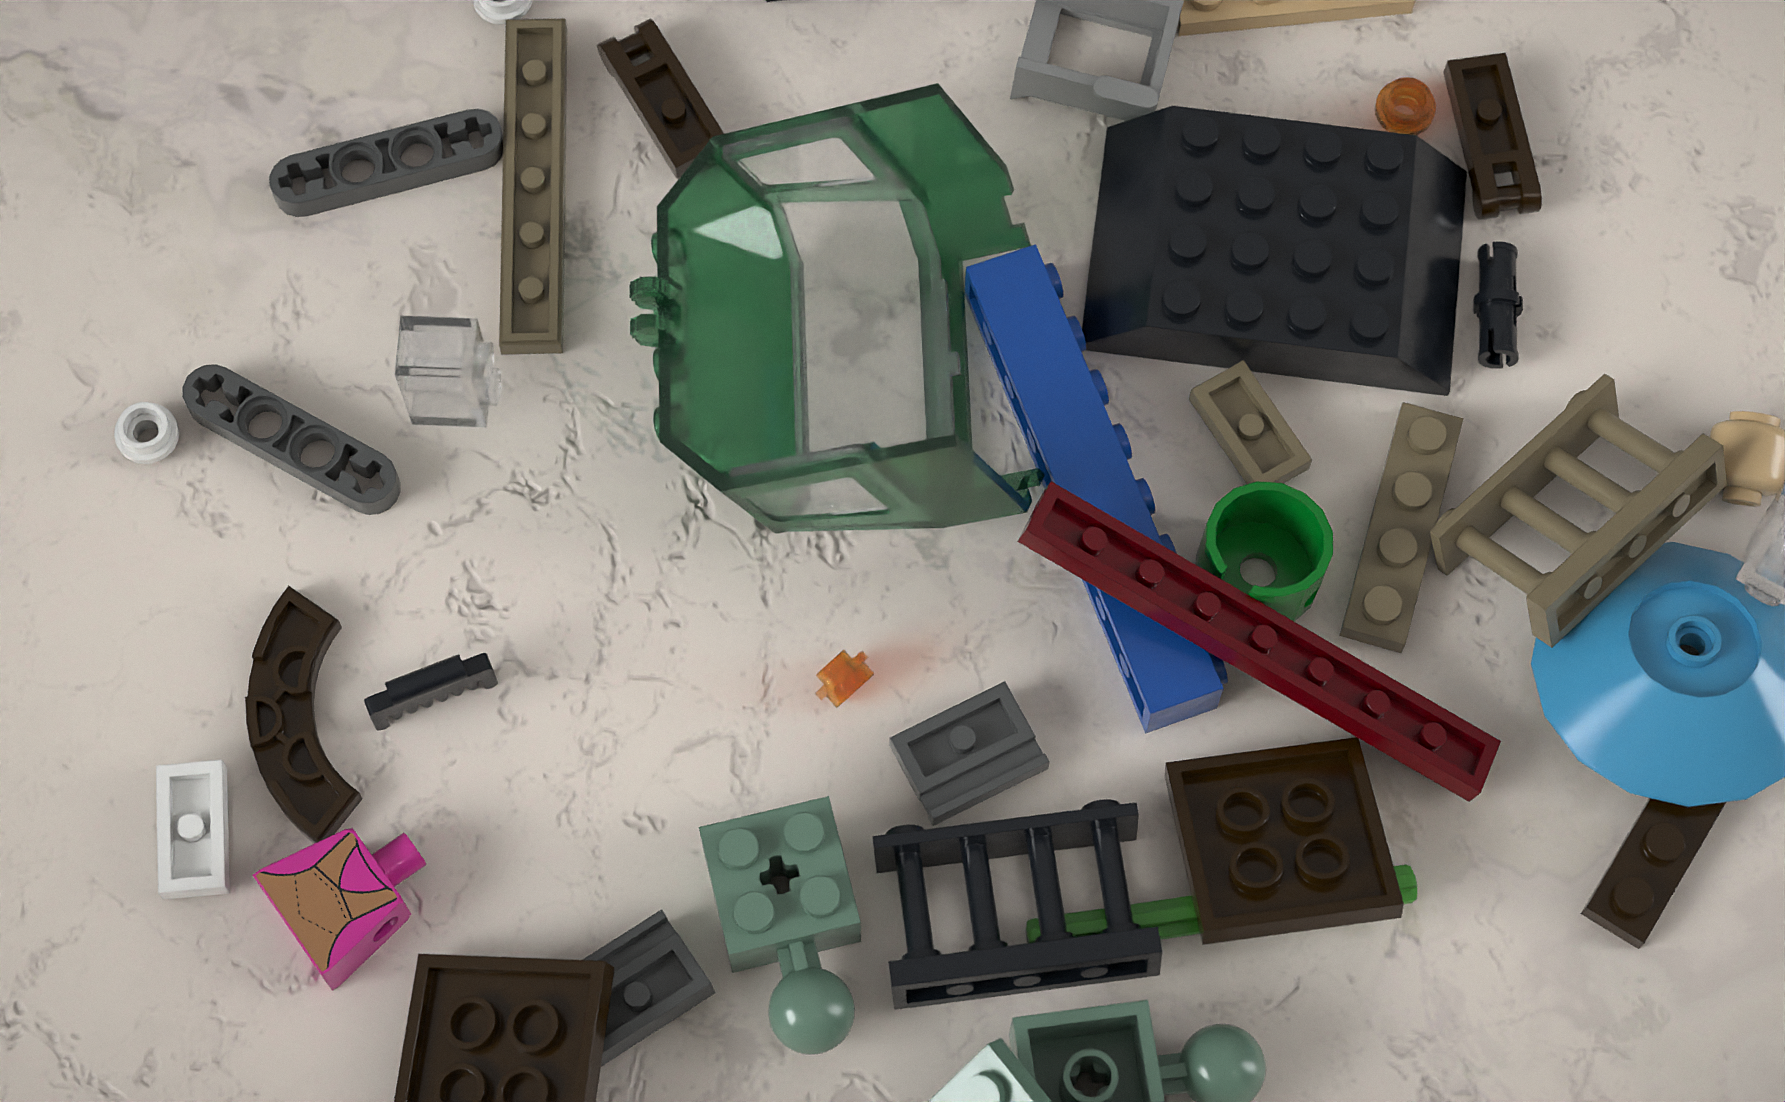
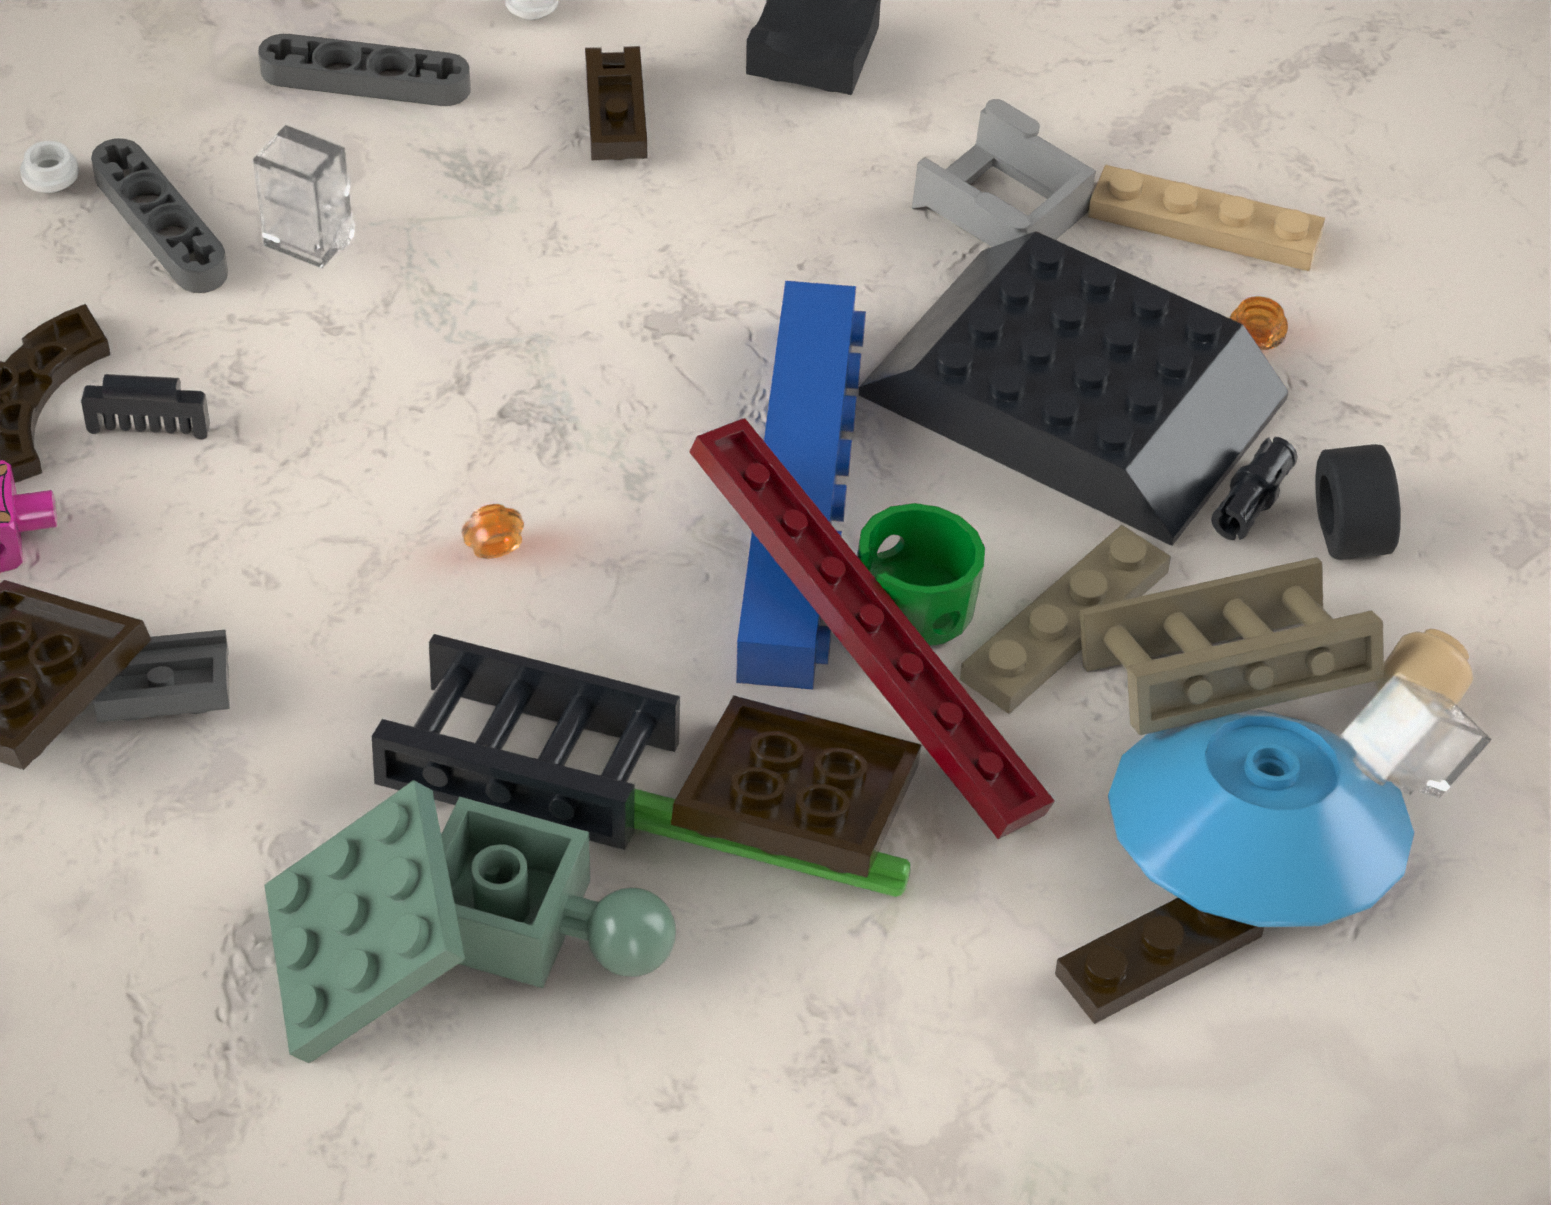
camera: 25 degrees right, 20 degrees down
(533, 187) = (469, 127): dark tan tile -> none
(810, 1005) = (326, 661): sand green brick -> none
(824, 316) = (646, 248): windscreen -> none
(969, 753) = (568, 623): dark grey plate -> none
(1249, 427) = (971, 486): dark tan plate -> none
(1492, 135) = (1325, 369): dark brown plate -> none
(1604, 287) = (1358, 501): none -> black tyre

